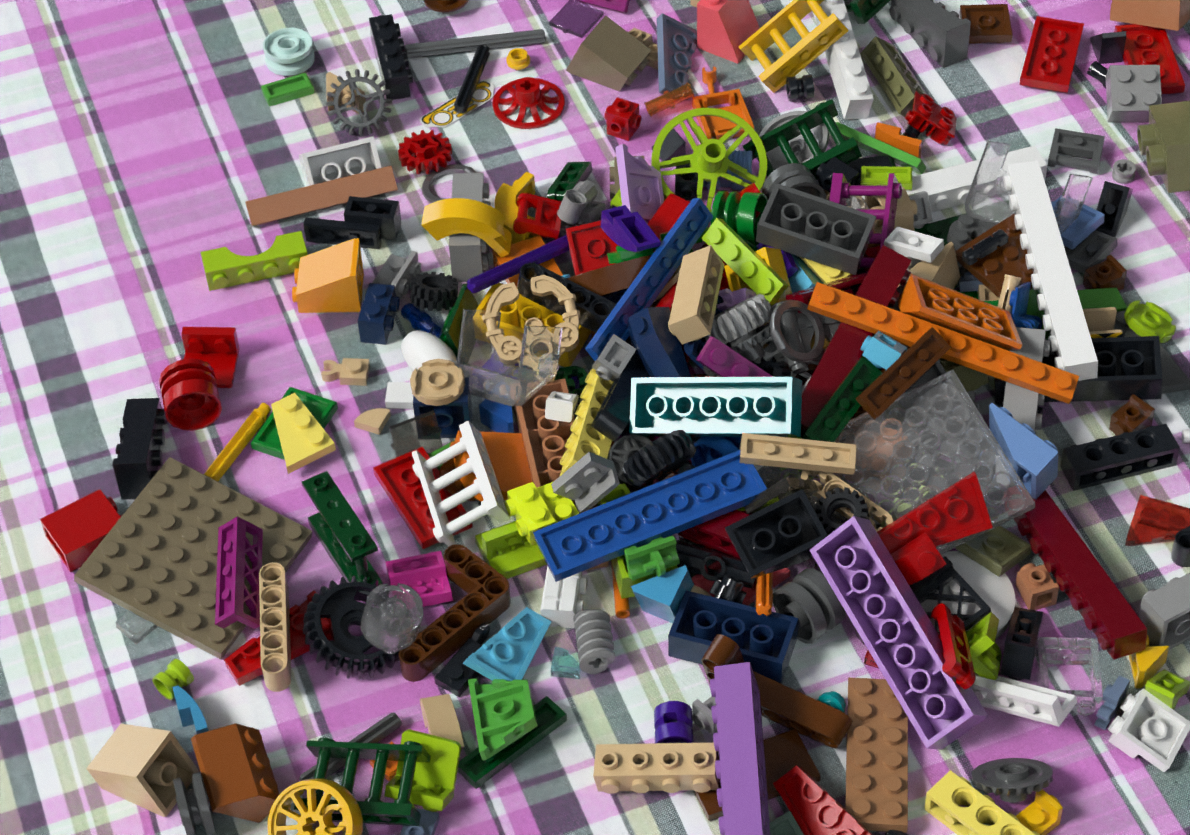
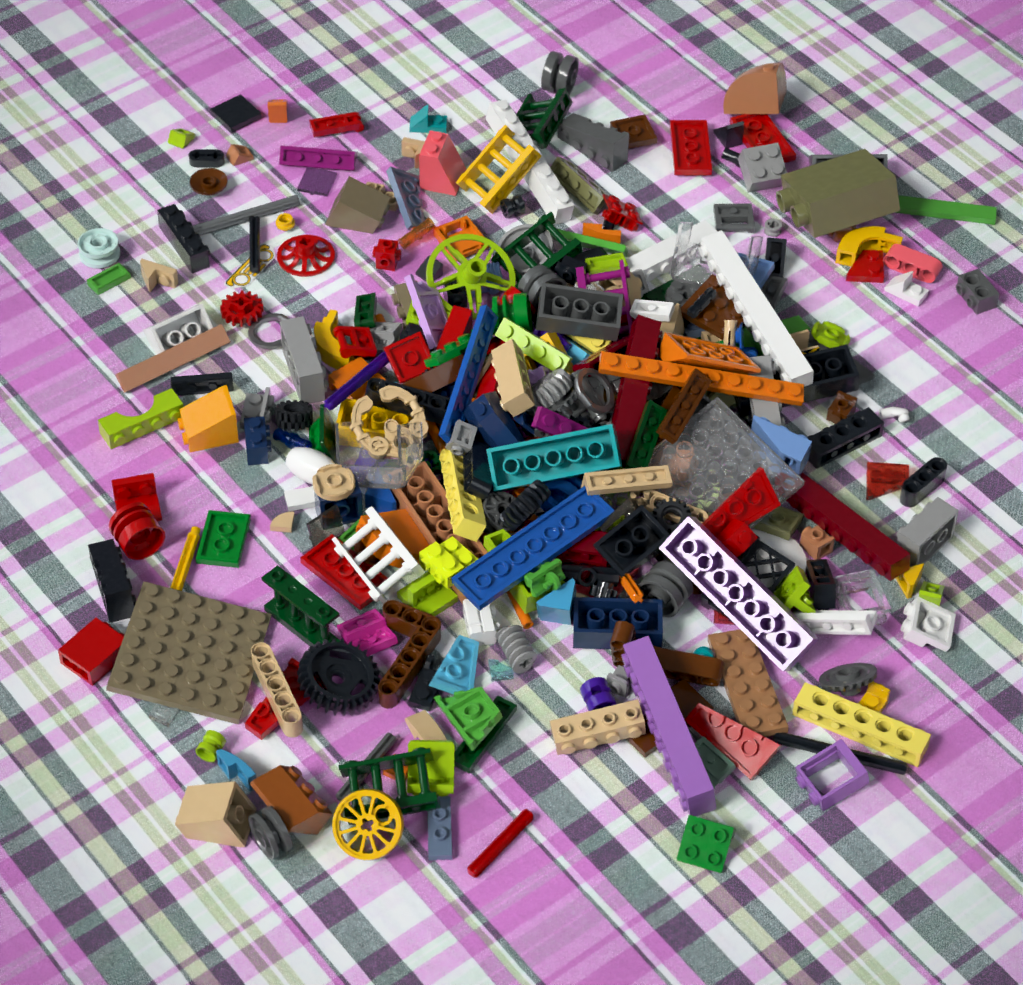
camera: 20 degrees left, 0 degrees up
(231, 572) = (232, 661): magenta fence -> none
(299, 433) = (234, 544): light yellow wing -> none
(343, 108) = (182, 285): dark grey gear -> none
(350, 372) = (250, 489): tan plate -> none
(377, 212) = (224, 362): black brick -> none
(392, 617) = (368, 662): clear brick -> none
(468, 217) = (308, 352): yellow arch -> none
(561, 406) = (431, 482): white slope -> none
(576, 201) = (381, 325): light grey piece -> none
(587, 481) = (479, 532): light grey bracket -> none
(628, 229) = (438, 339): dark purple slope -> none
(709, 78) = (439, 211): orange hand -> none
(882, 350) = (662, 393): medium azure brick -> none
(955, 646) = (786, 598): red plate -> none
(1105, 275) = (788, 306): reddish brown brick -> none
(1113, 697) = (896, 609): sand blue plate -> none

